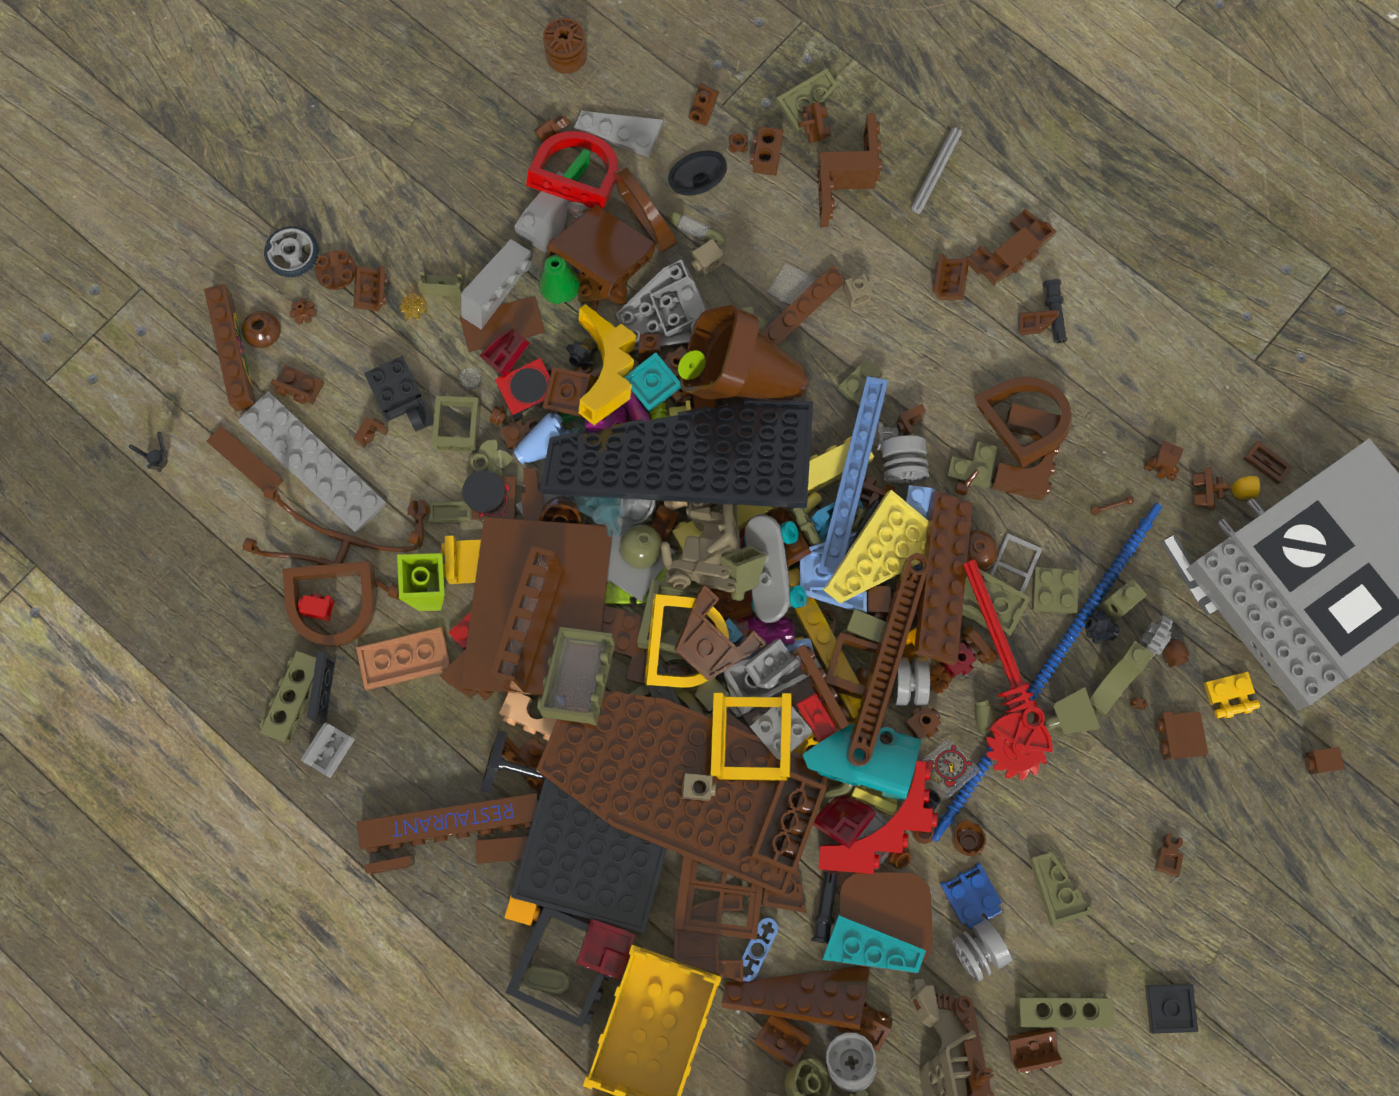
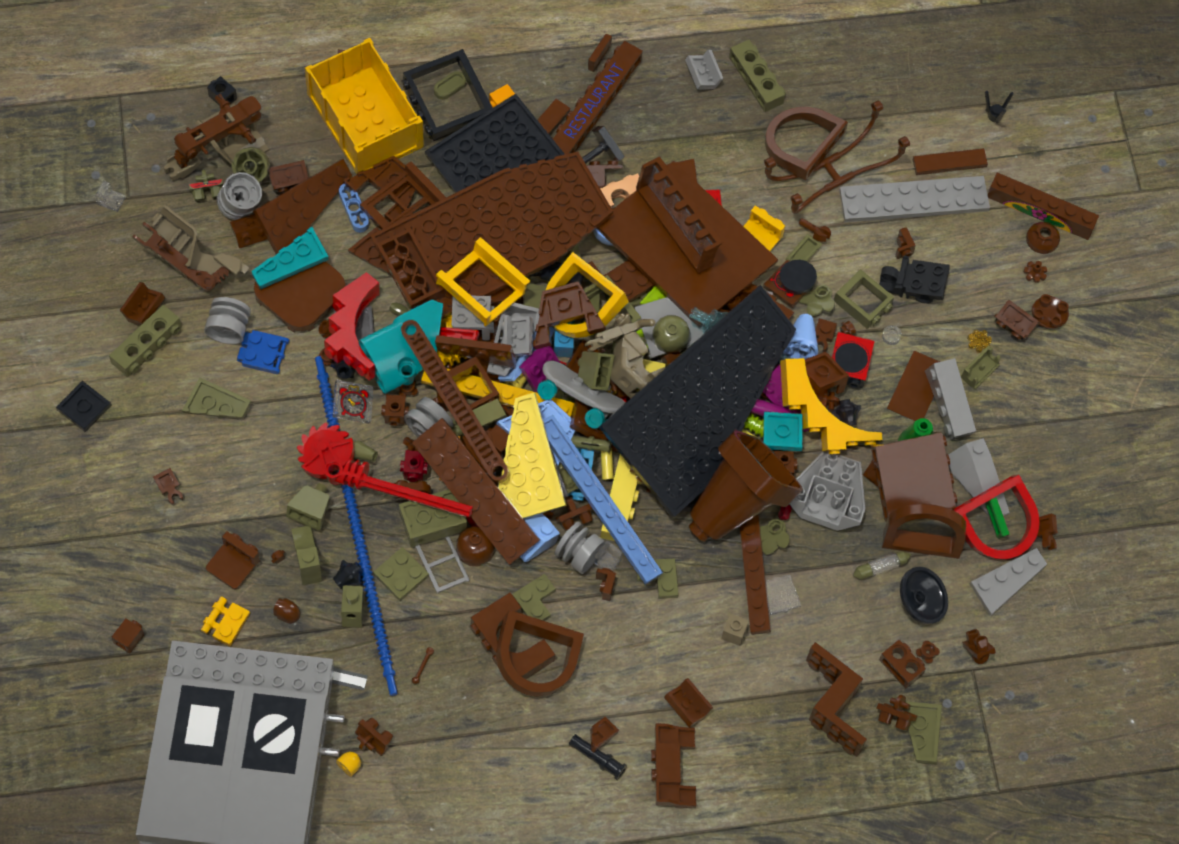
camera: 125 degrees right, 10 degrees down
(294, 259) = (1093, 288): light grey wheel -> none
(298, 385) = (979, 228): reddish brown bracket -> none
(316, 606) = (806, 129): red brick -> none
(321, 688) = (747, 90): black tile -> none
(403, 658) = (726, 155): nougat tile -> none
(421, 580) = (765, 186): lime slope -> none
(504, 351) = (891, 364): dark red plate -> none
(565, 45) = (1111, 590): reddish brown wheel -> none
(576, 209) = (964, 496): clear tile -> none
(577, 675) = (615, 216): window -> none
(605, 949) = (437, 117): dark red plate -> none
(648, 346) = (813, 456): reddish brown bracket -> none
(688, 791) = (484, 223): dark tan brick -> none
(691, 365) = (769, 454): lime piece -> none
(707, 257) = (850, 552): dark tan brick -> none
(824, 920) = (335, 257): black pin -> none
(844, 819) = (380, 307): dark red plate -> none
(936, 170) = (784, 773): light grey axle -> none
(962, 488) = (527, 576): reddish brown hand -> none
(968, 838) = (298, 375): reddish brown hair -> none
(1157, 635) = (308, 597): light grey gear -> none
(1165, 461) = (418, 723): reddish brown piece -> none
(1252, 454) = (367, 790): reddish brown tile -> none

